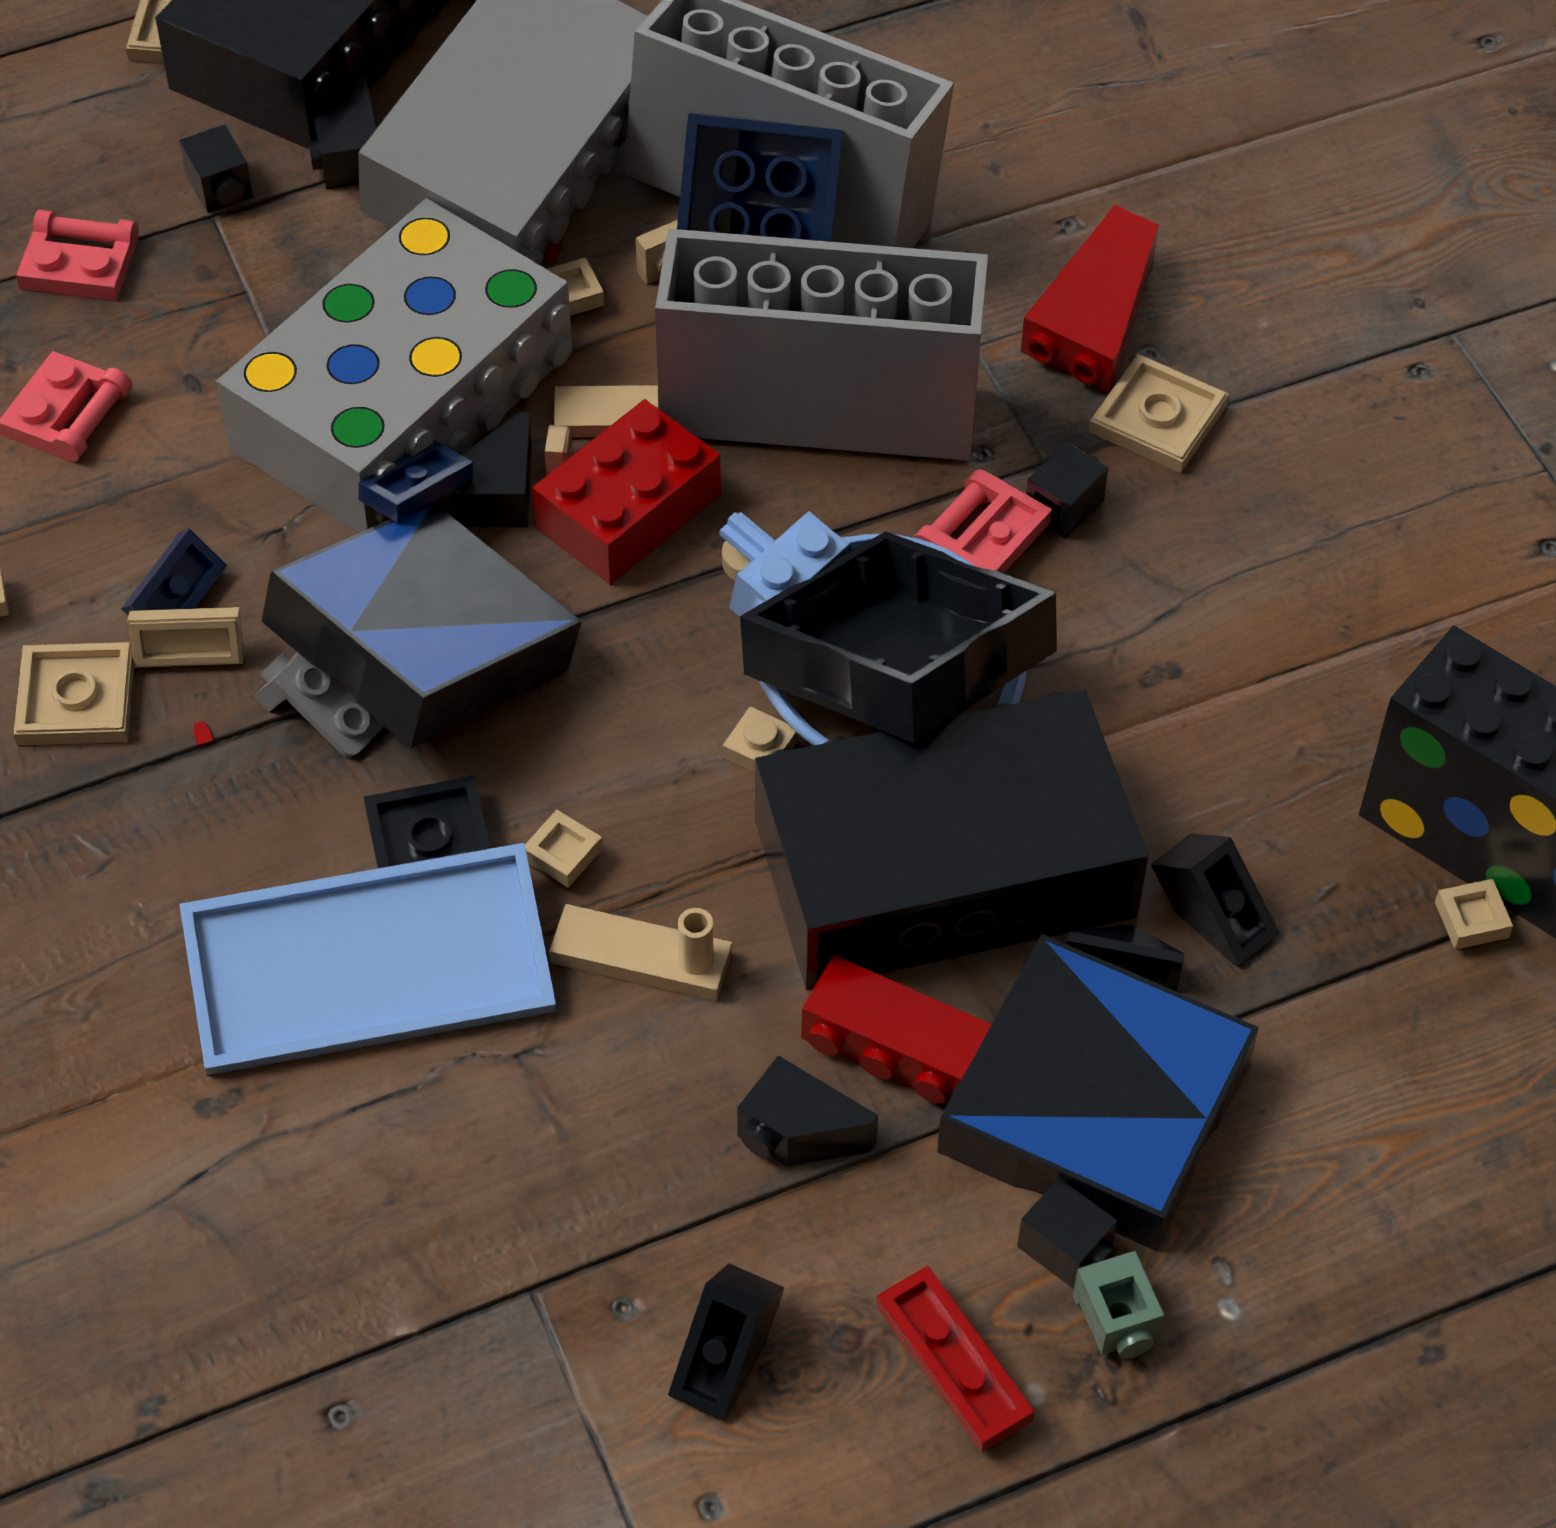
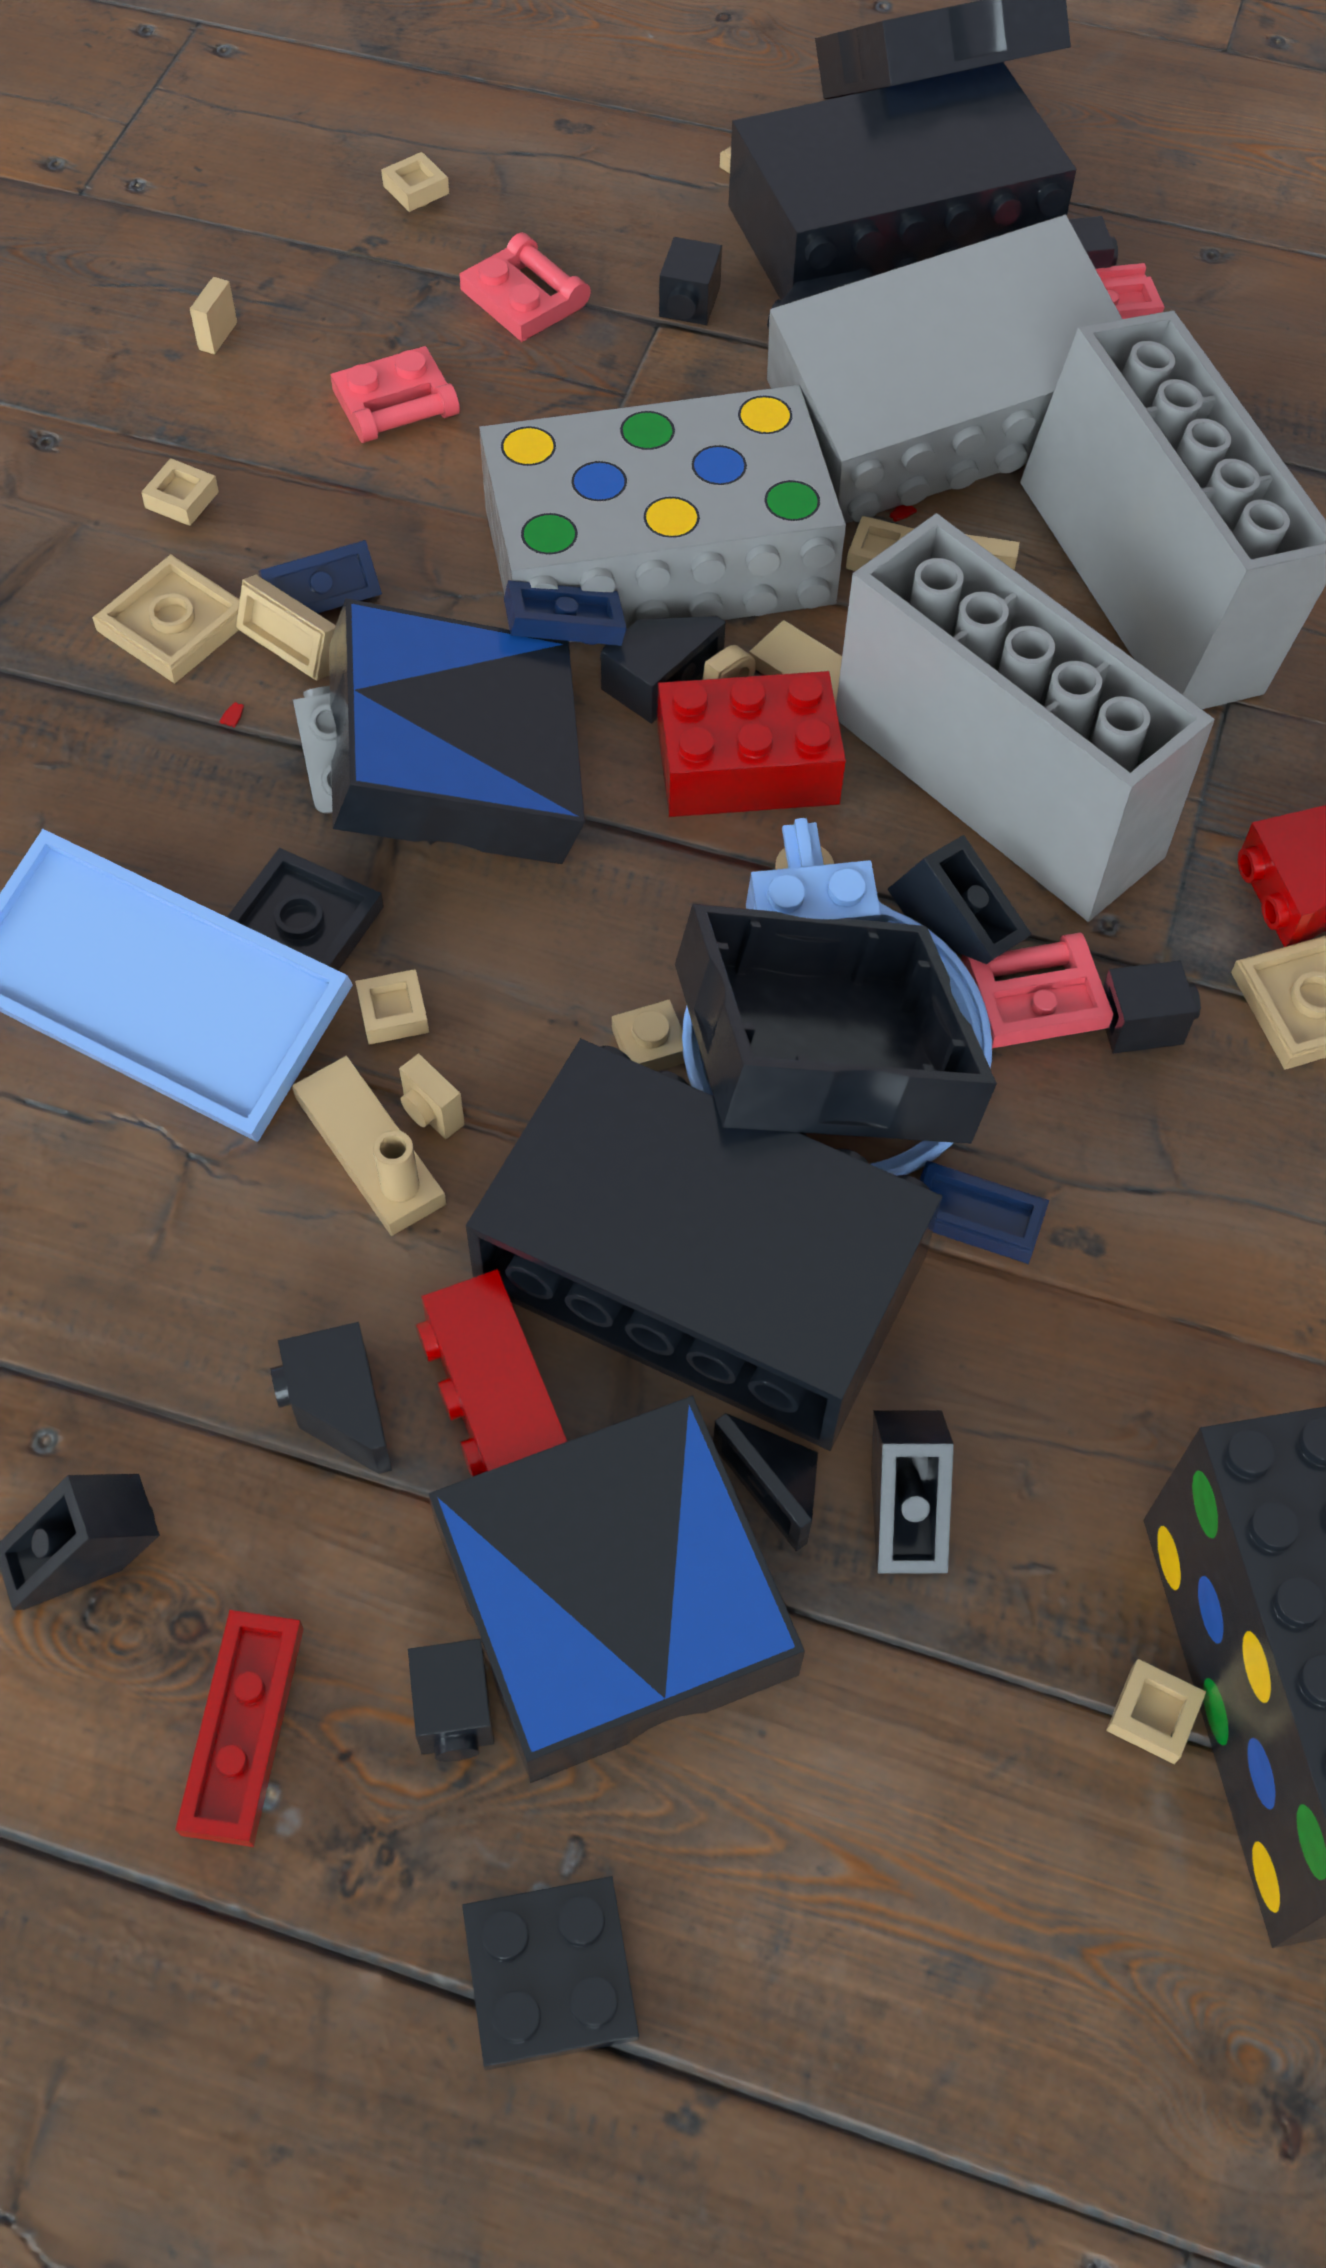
camera: 40 degrees right, 5 degrees up
(658, 886) = (430, 1097): none -> tan plate
(759, 177) = (1086, 533): dark blue slope -> none
(882, 498) = (960, 902): none -> black slope
(1109, 689) = (985, 1212): none -> dark blue tile
(1121, 1288) = (421, 1781): sand green brick -> none
(1279, 1339) = (549, 1973): none -> black plate

